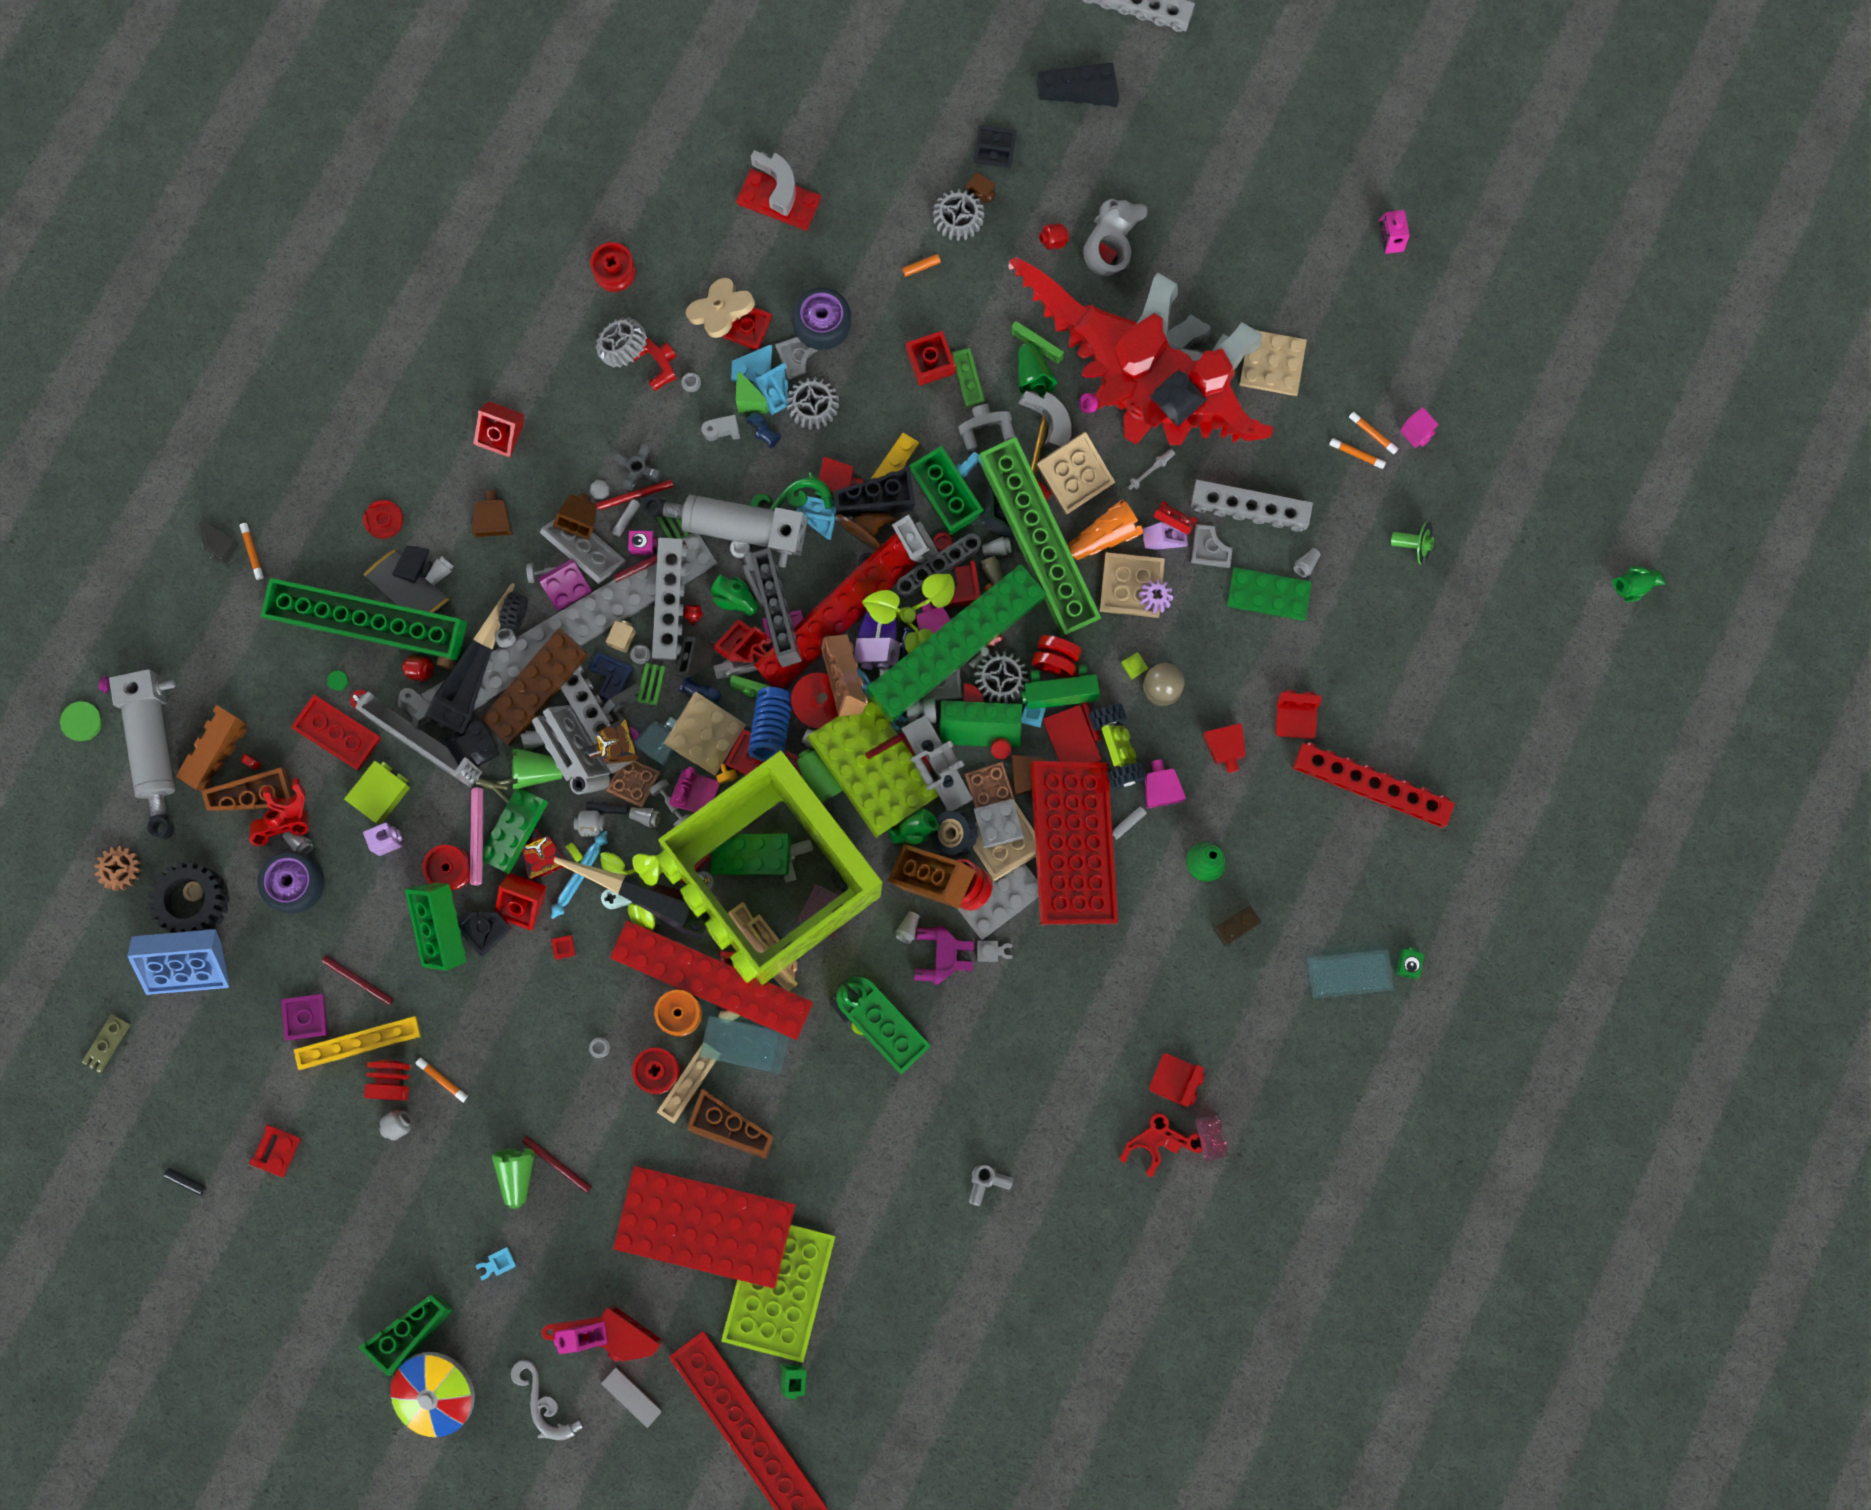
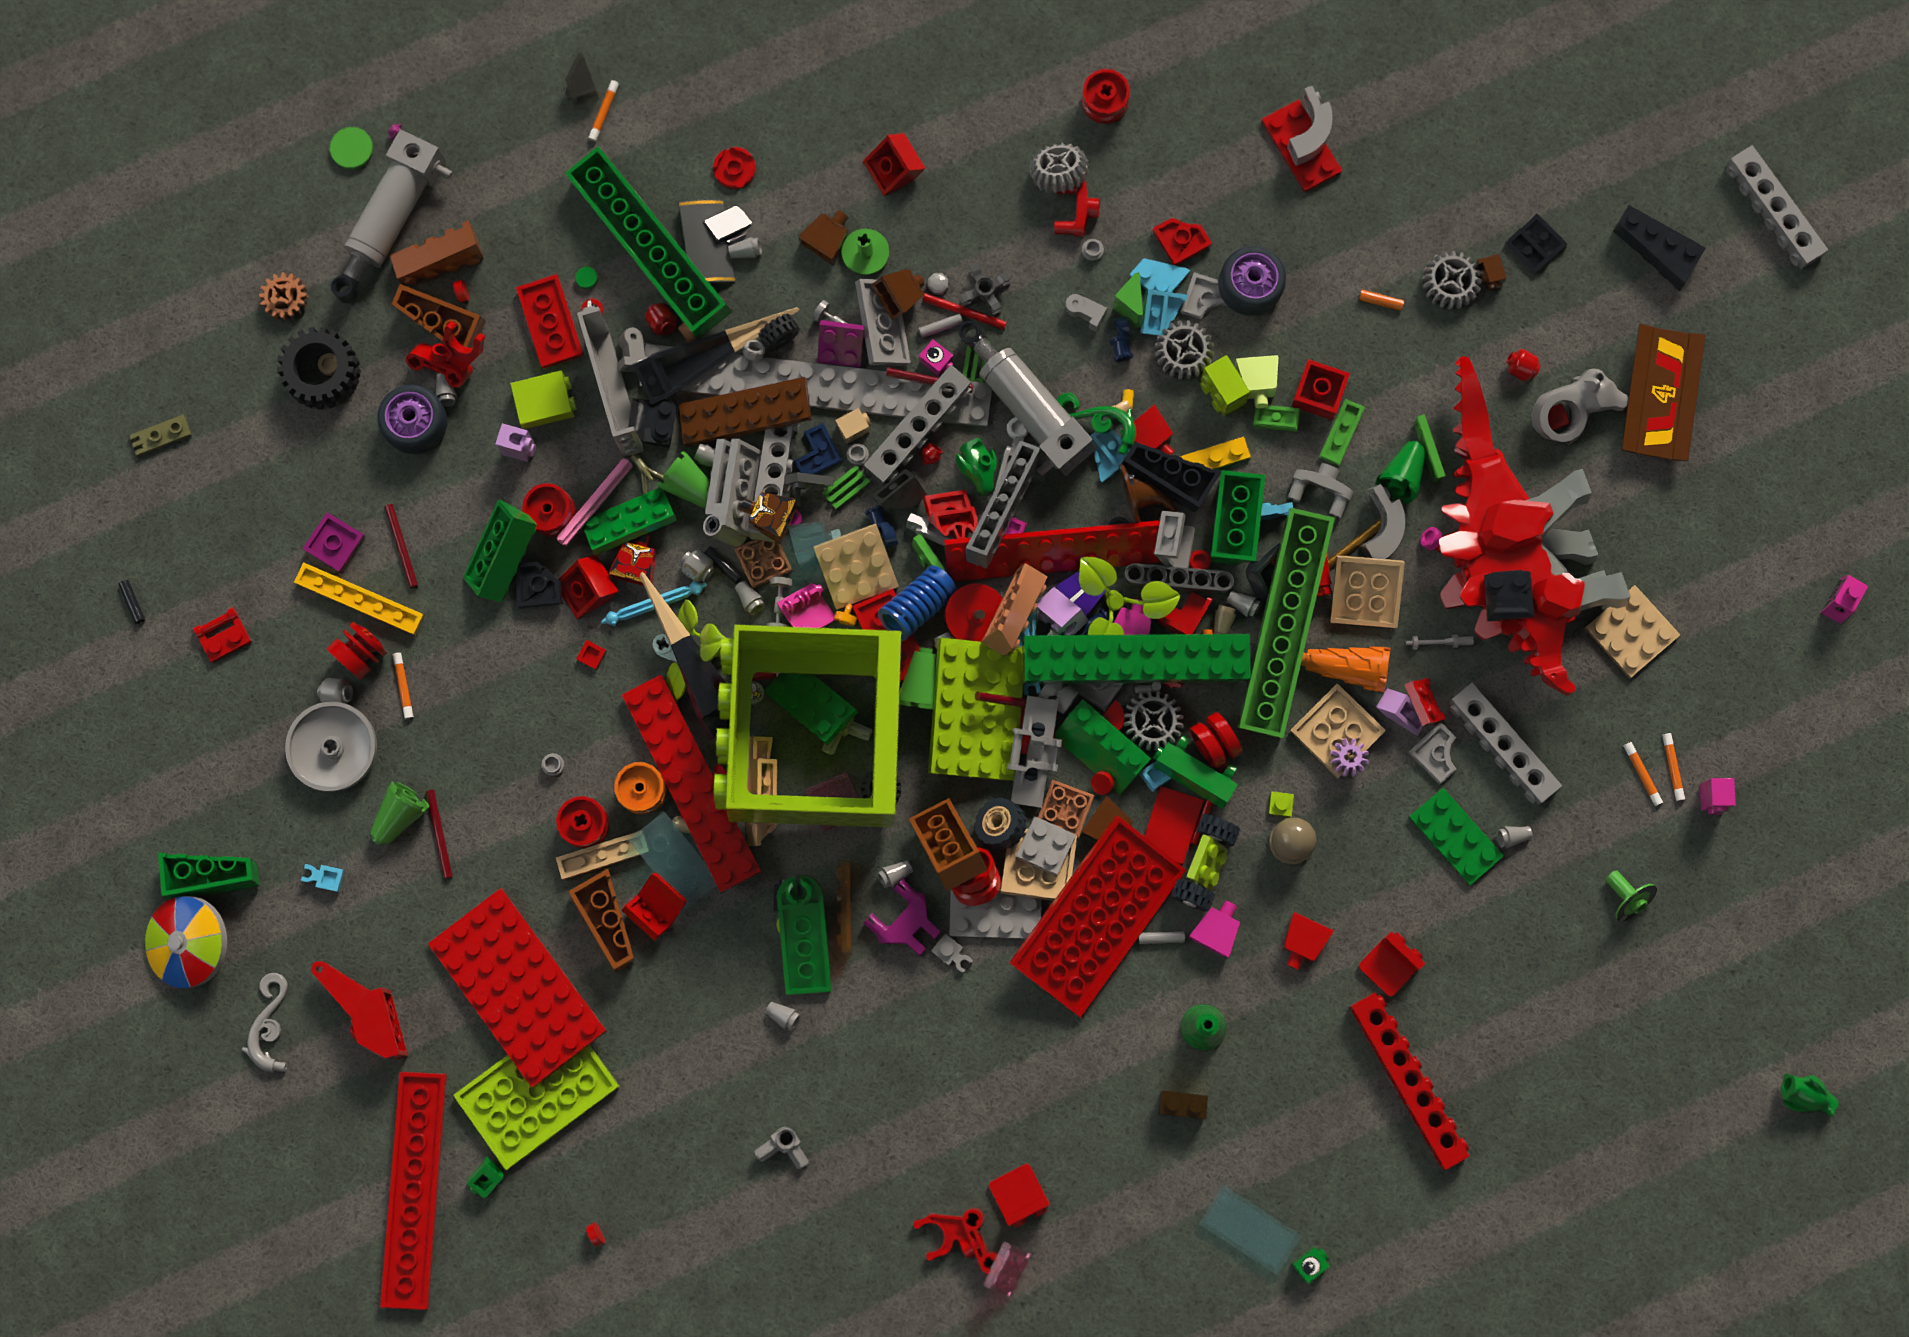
camera: 45 degrees right, 0 degrees up
(179, 961) = (269, 414): medium blue slope -> none
(425, 1166) = (331, 746): none -> light grey dish
(528, 506) = (865, 251): none -> bright green piece
(571, 1339) = (331, 991): dark pink torso -> none
(574, 852) = (664, 580): lime tile -> none
(631, 1397) = (343, 1080): light grey tile -> none
(720, 307) = (1170, 203): tan plant -> none
(757, 1087) = (655, 906): none -> red bracket
(801, 469) = (1127, 401): none -> yellow arm
(862, 406) = (1224, 386): none -> lime brick
(880, 383) = (1259, 376): none -> yellowish green torso
(897, 985) = (844, 939): none -> clear orange plate
(904, 1354) = (595, 1234): none -> red tile
(911, 1091) = (784, 1016): none -> light grey cone
(915, 401) = (1277, 418): none -> bright green plate
(915, 828) = (969, 792): green animal -> none
(1164, 183) = (1663, 393): none -> reddish brown hinge

